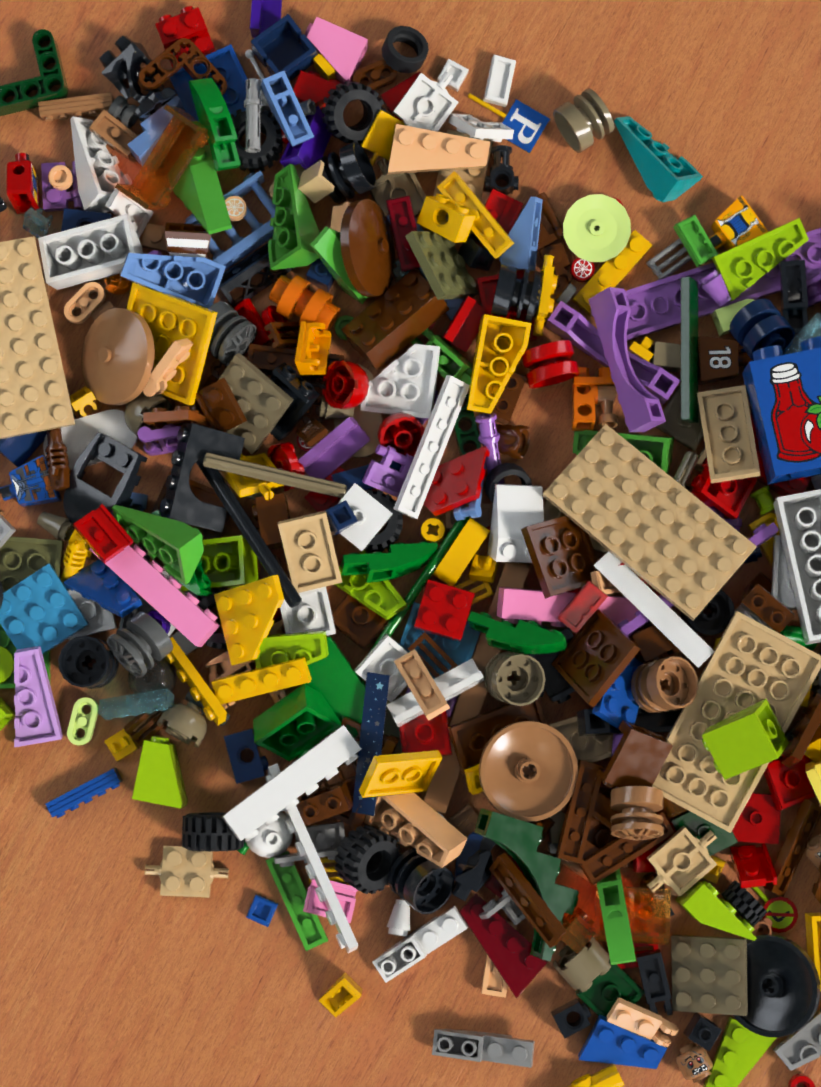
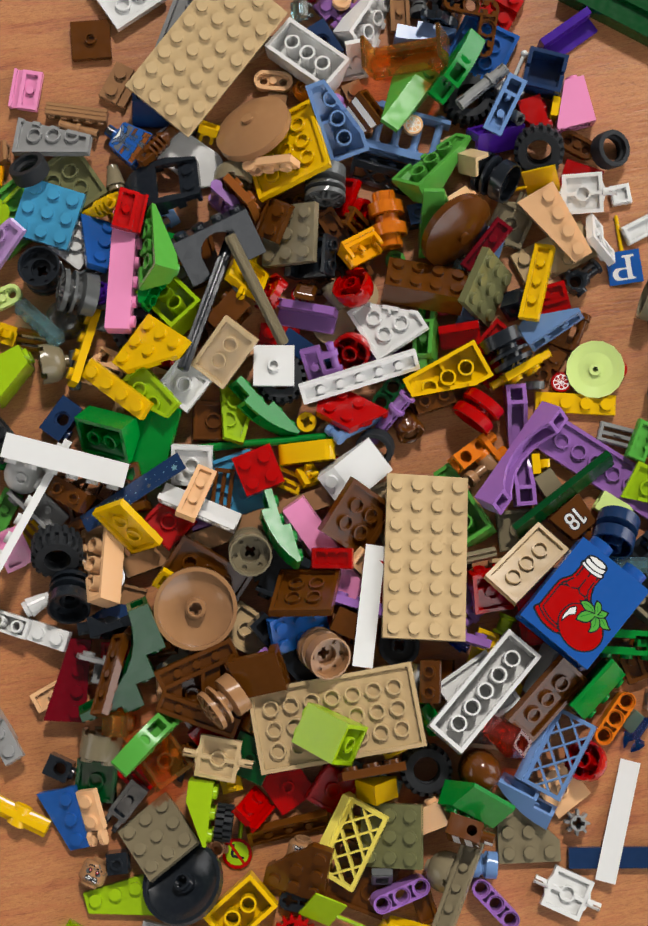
camera: 50 degrees right, 0 degrees up
(340, 517) = (263, 353): dark blue slope -> none
(434, 218) = (518, 265): yellow brick -> none
(715, 287) = (619, 479): medium lavender cone -> none

